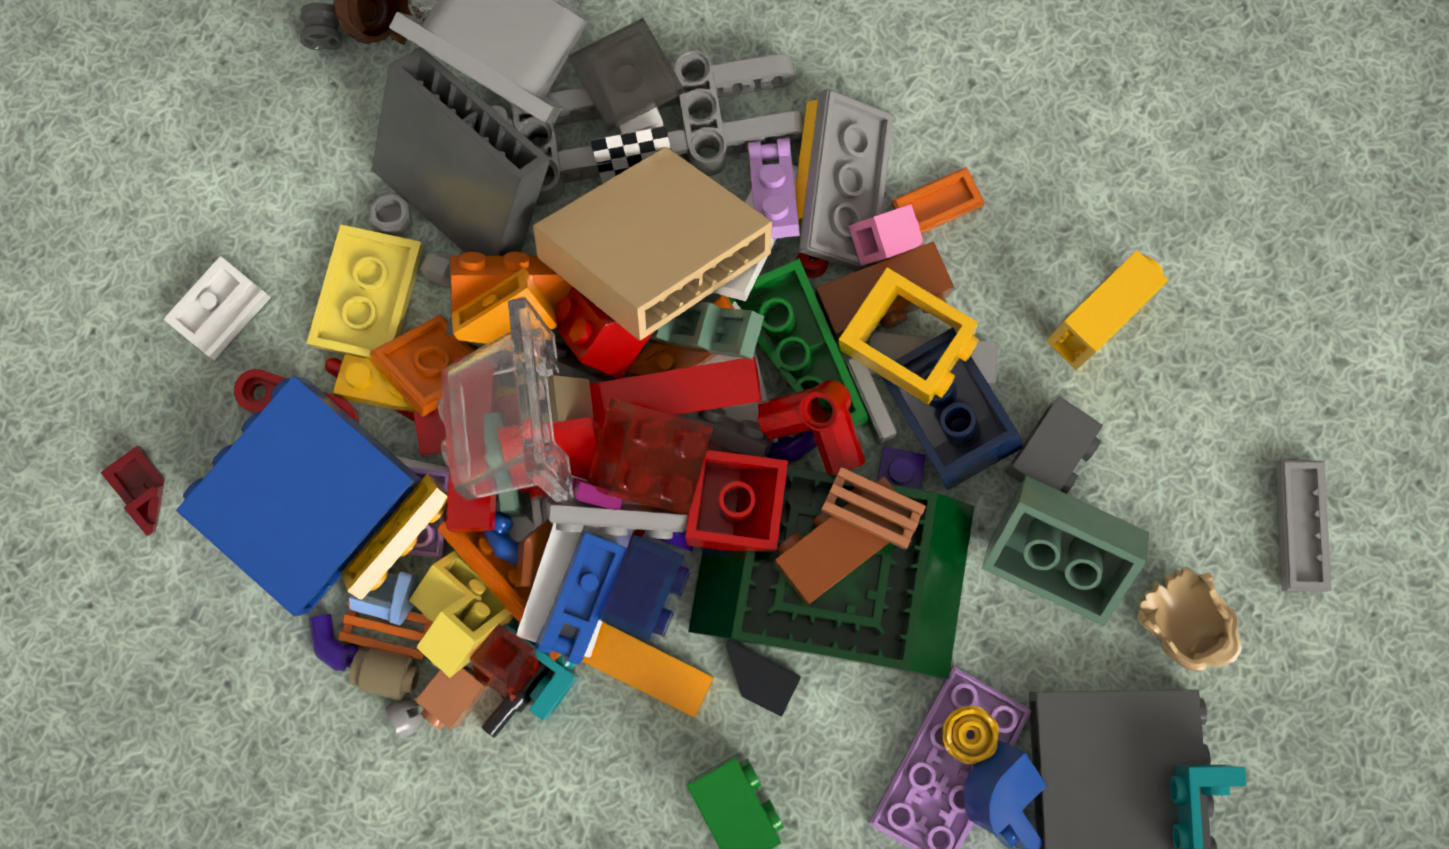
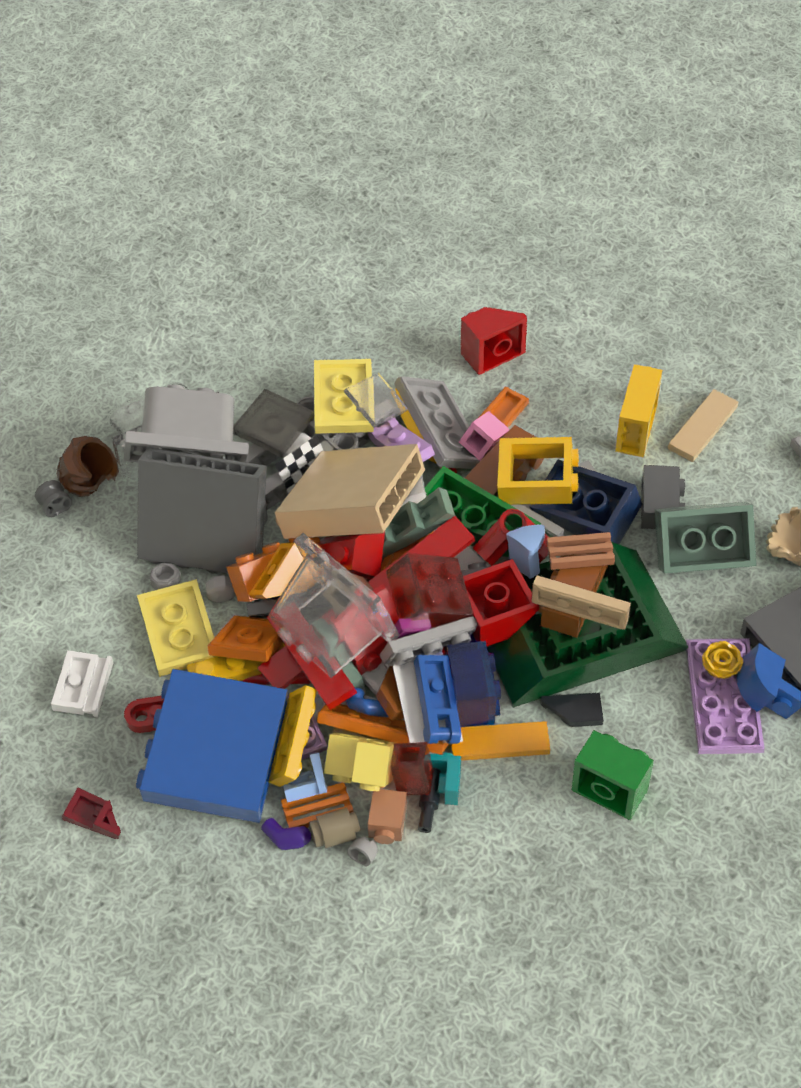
camera: 30 degrees left, 25 degrees down
(739, 80) = (332, 407): none -> light yellow plate
(772, 112) = (376, 400): none -> clear piece
(817, 451) = (524, 548): none -> light blue tile
(819, 591) = (580, 602): none -> tan tile
(988, 90) = (492, 337): none -> red slope
(1183, 368) = (703, 425): none -> tan tile

